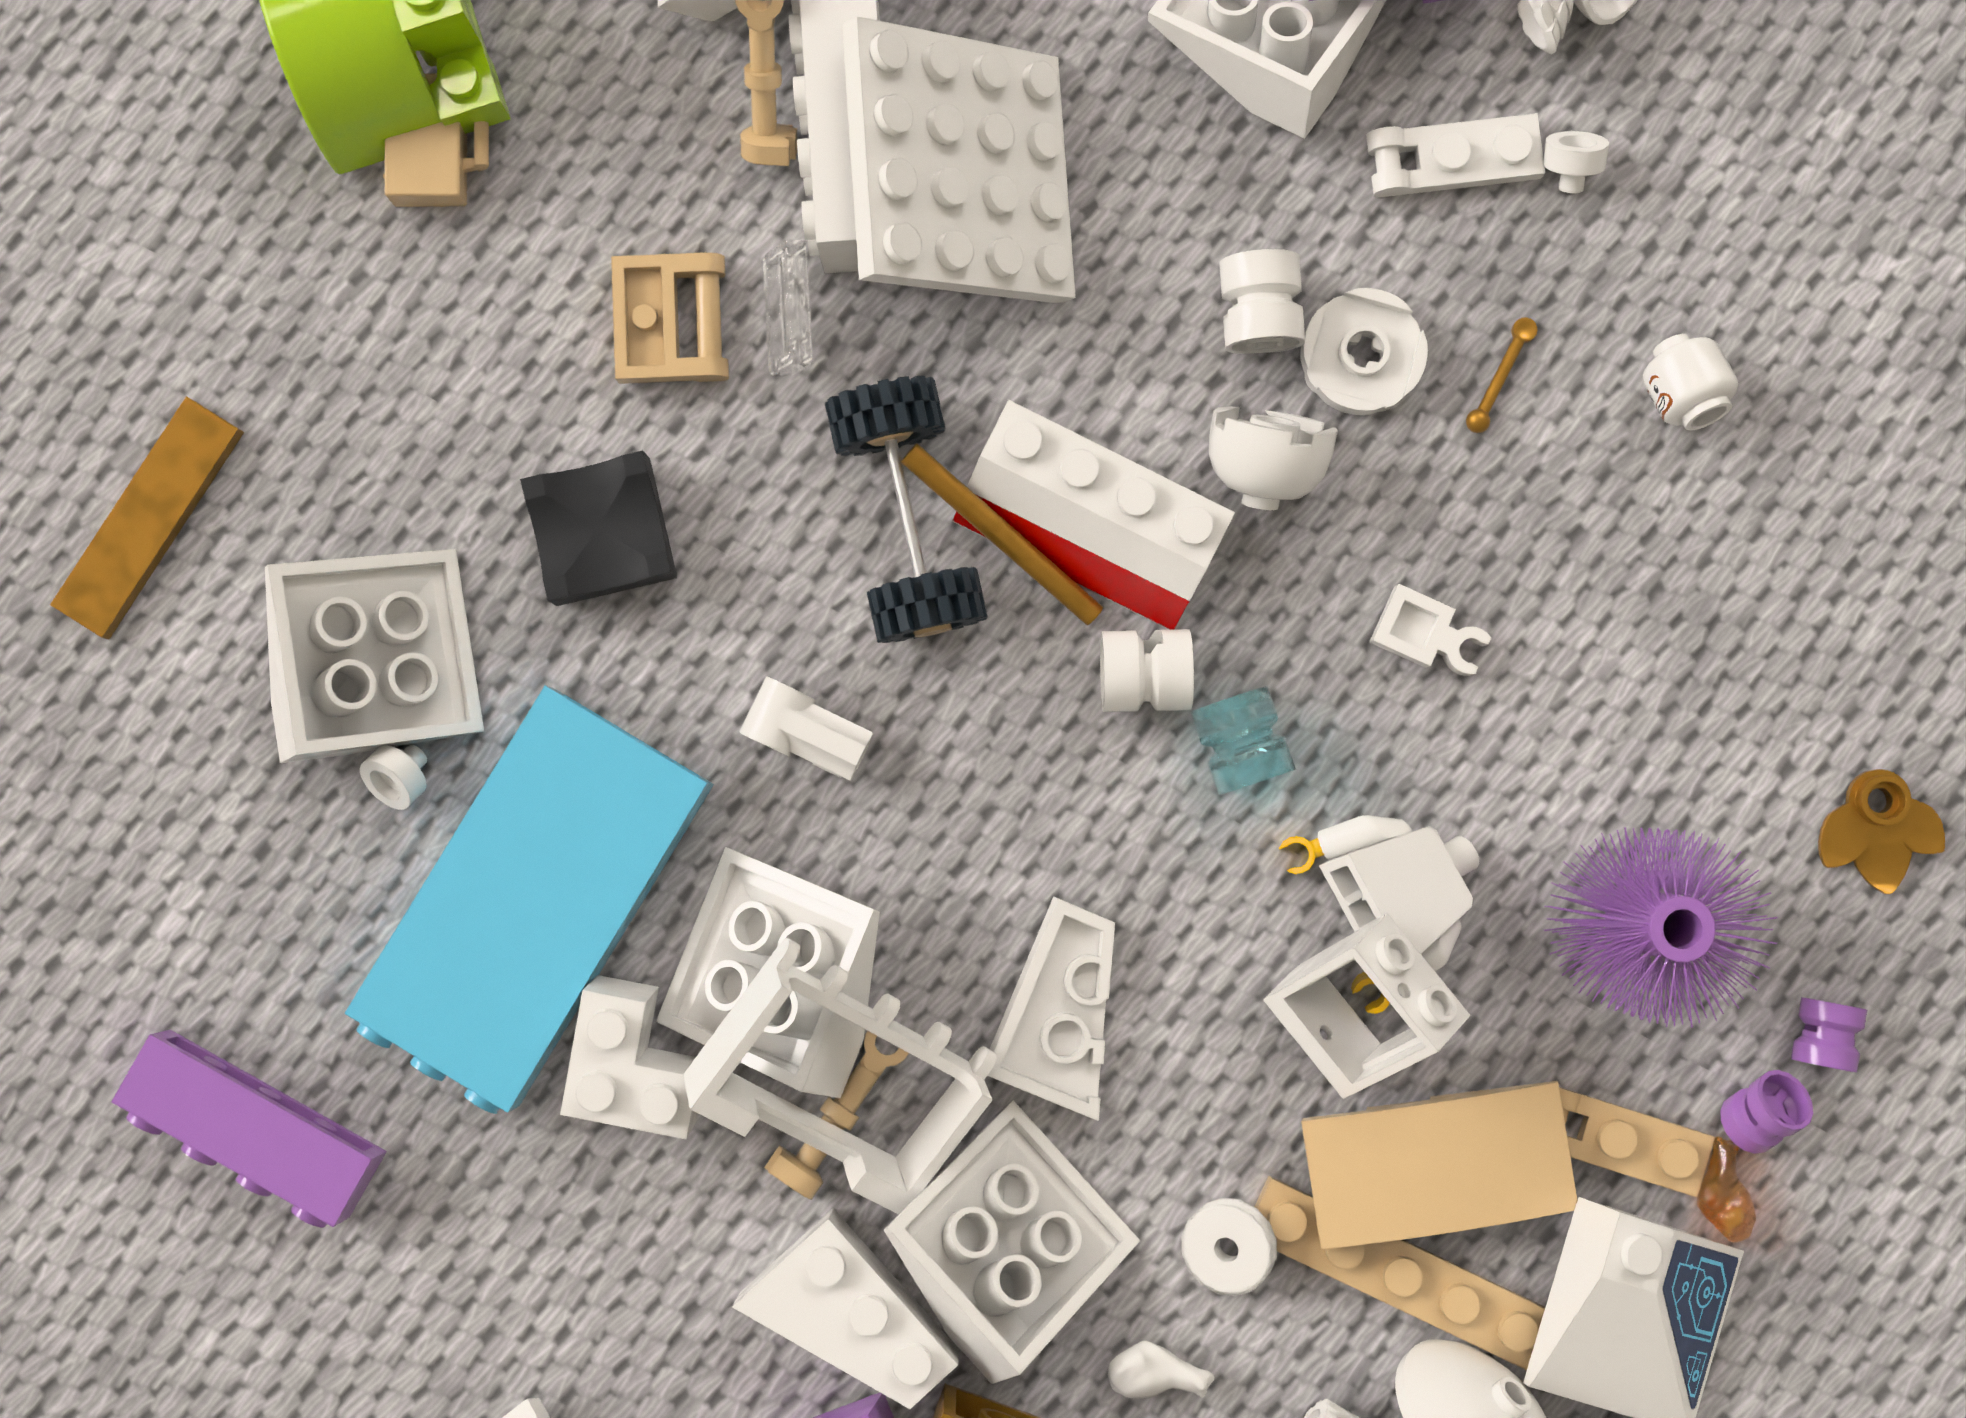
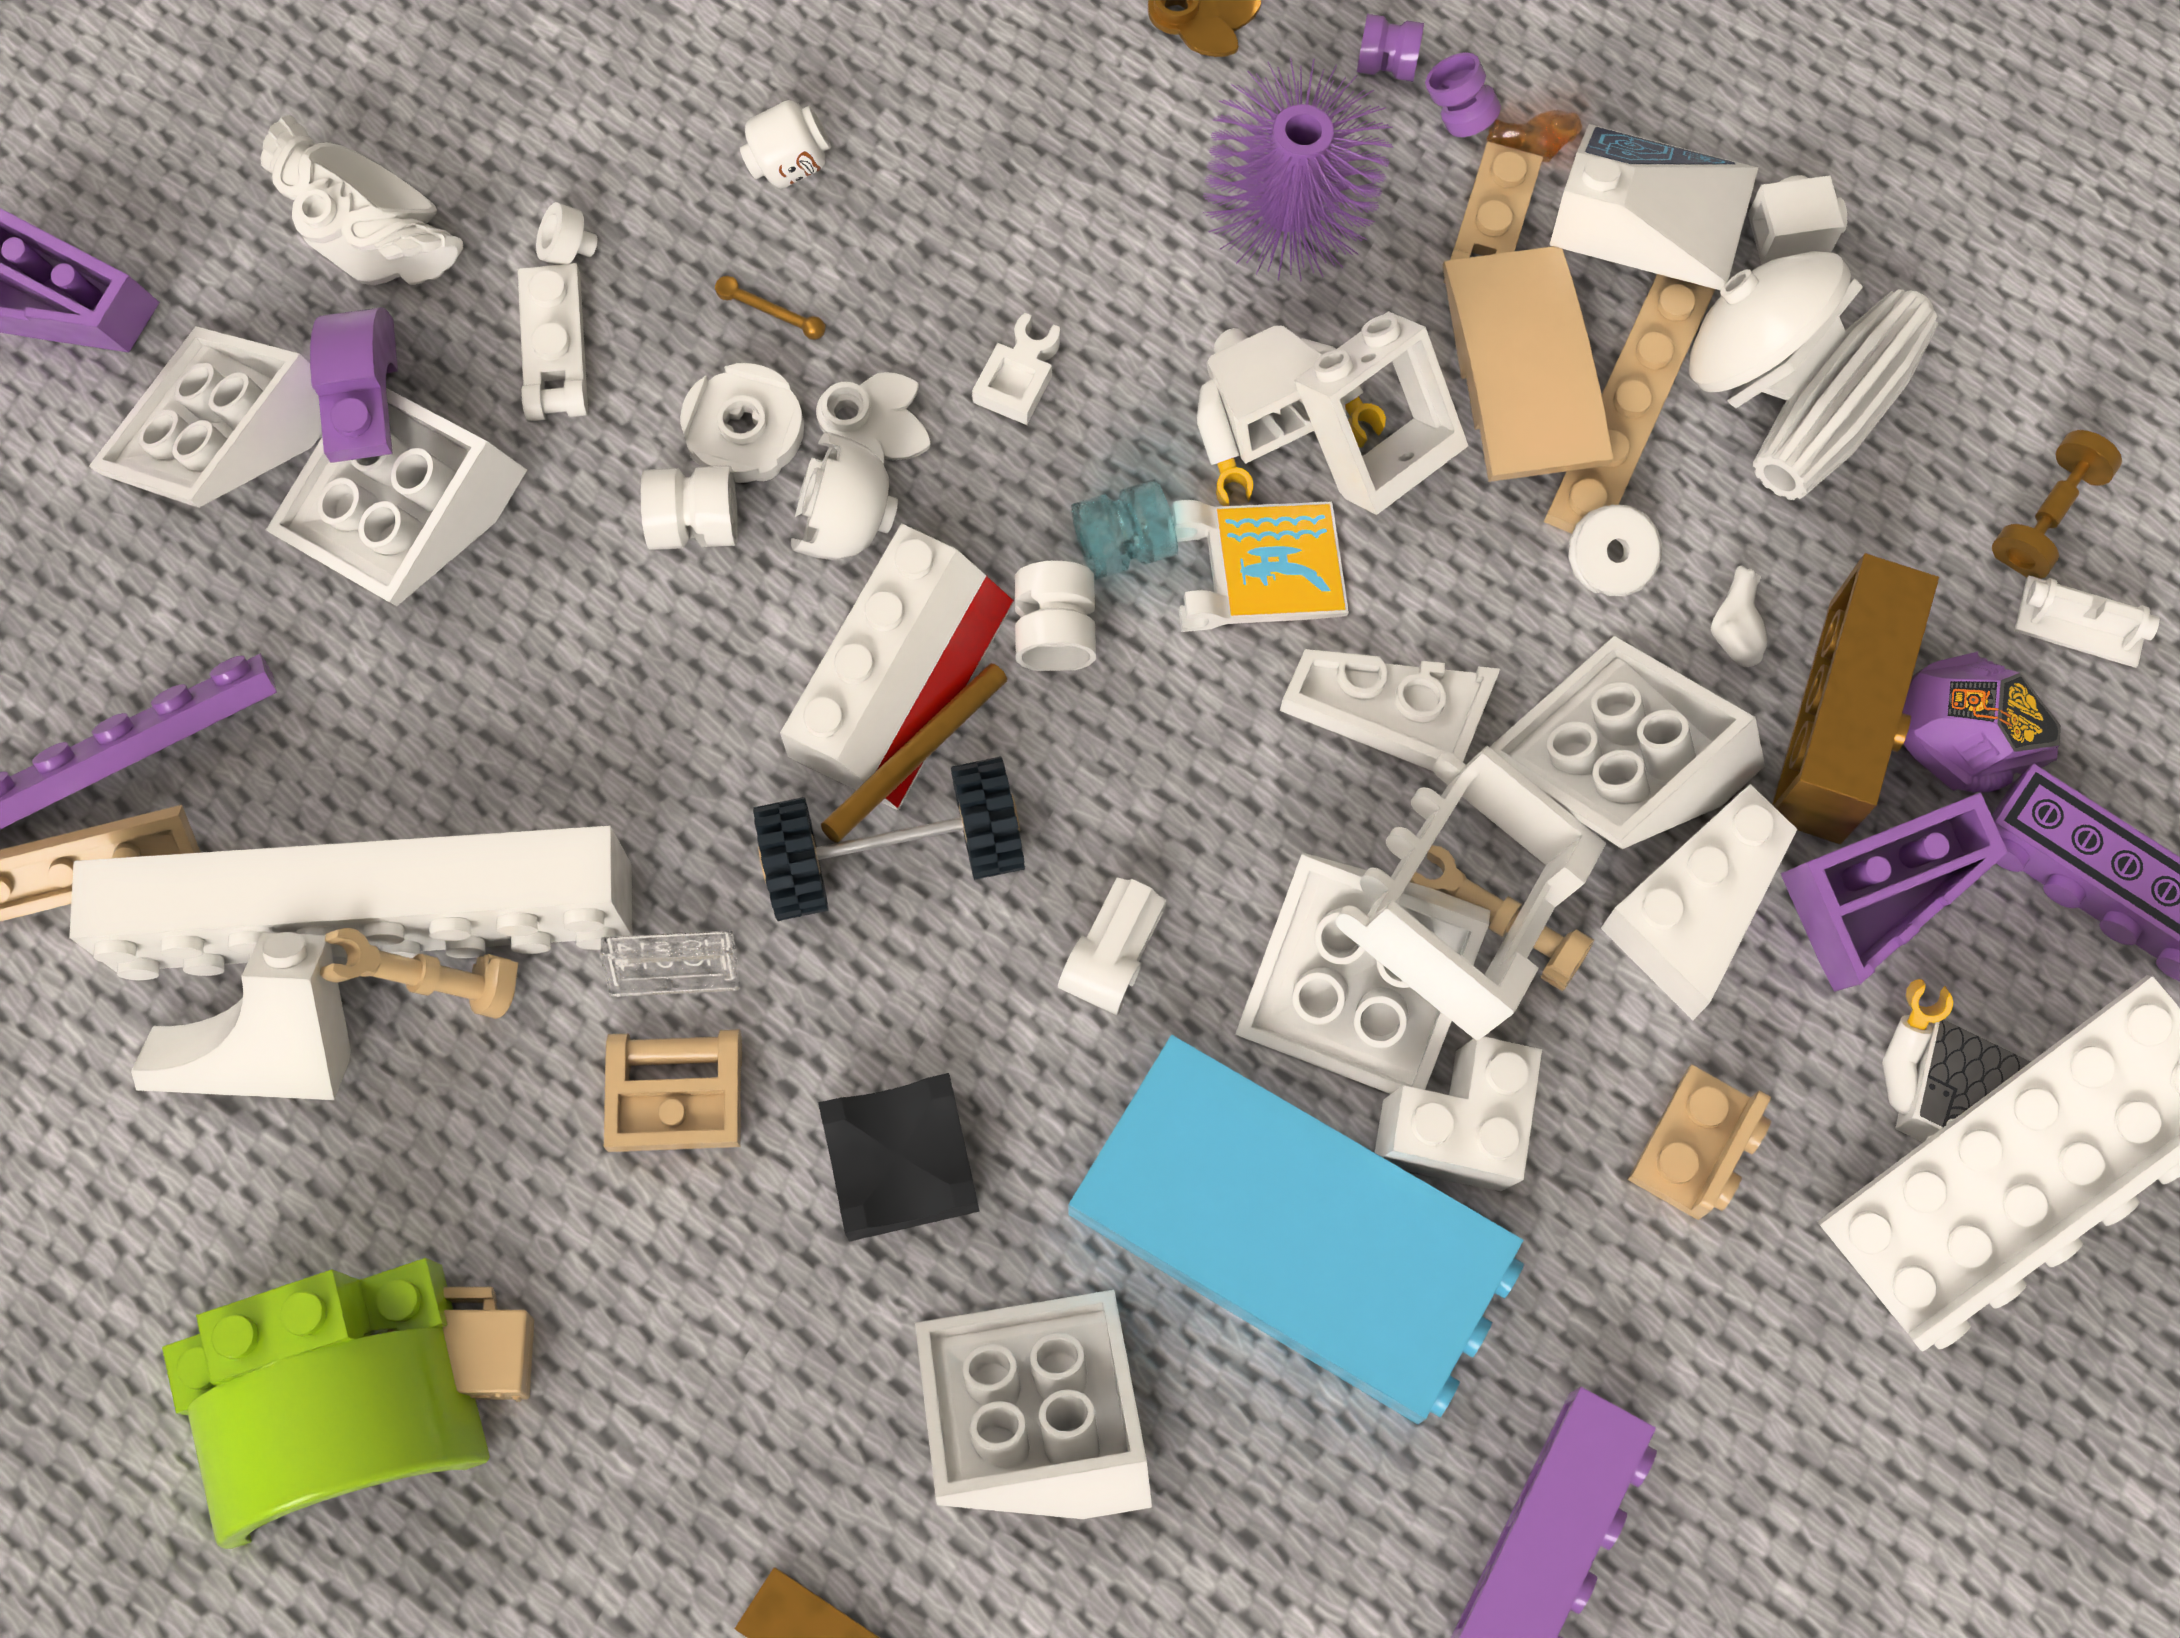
camera: 90 degrees left, 15 degrees down
(395, 775) = (1165, 1379): white tile -> none
(612, 1292) = (1700, 1142): none -> tan bracket
(957, 163) = (533, 776): white plate -> none
(1216, 887) = (1264, 563): none -> flag
(1368, 495) = (882, 415): none -> white plate

